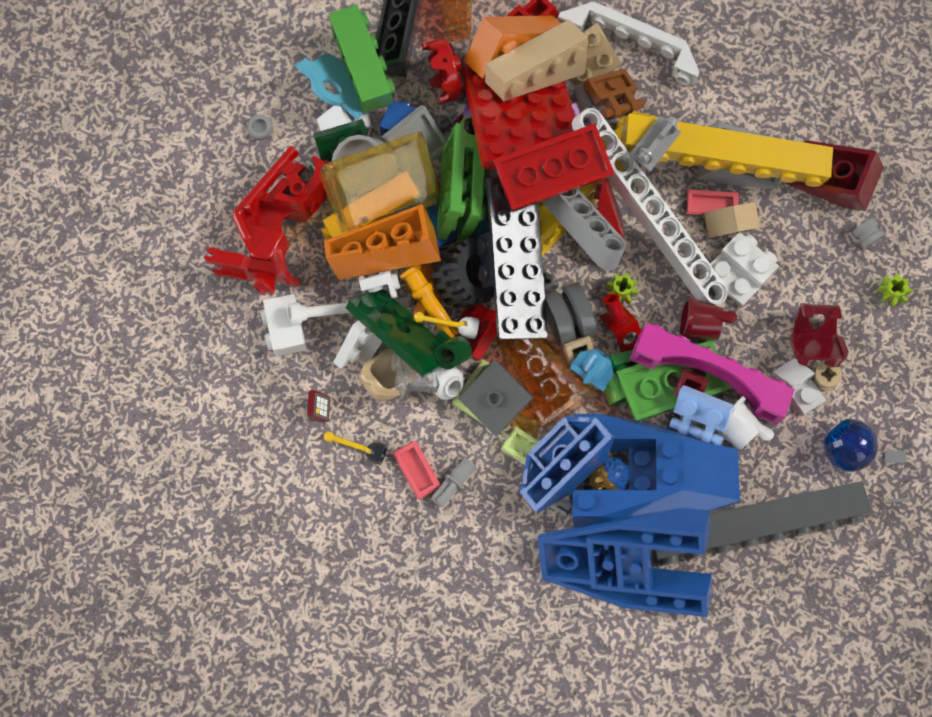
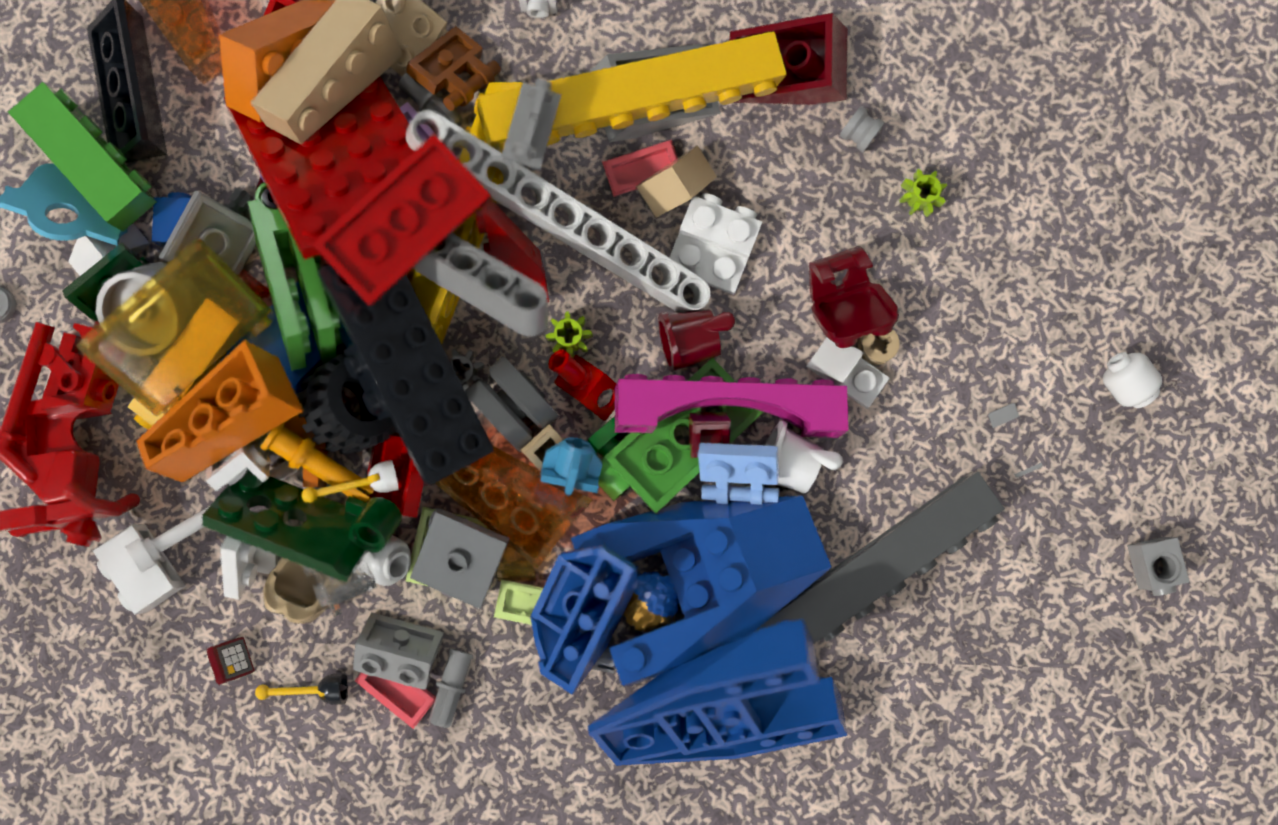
camera: 25 degrees left, 10 degrees up
(428, 444) = (397, 651): none -> light grey bracket
(447, 62) = (202, 115): red plate -> none
(851, 445) = (945, 429): clear blue helmet -> none

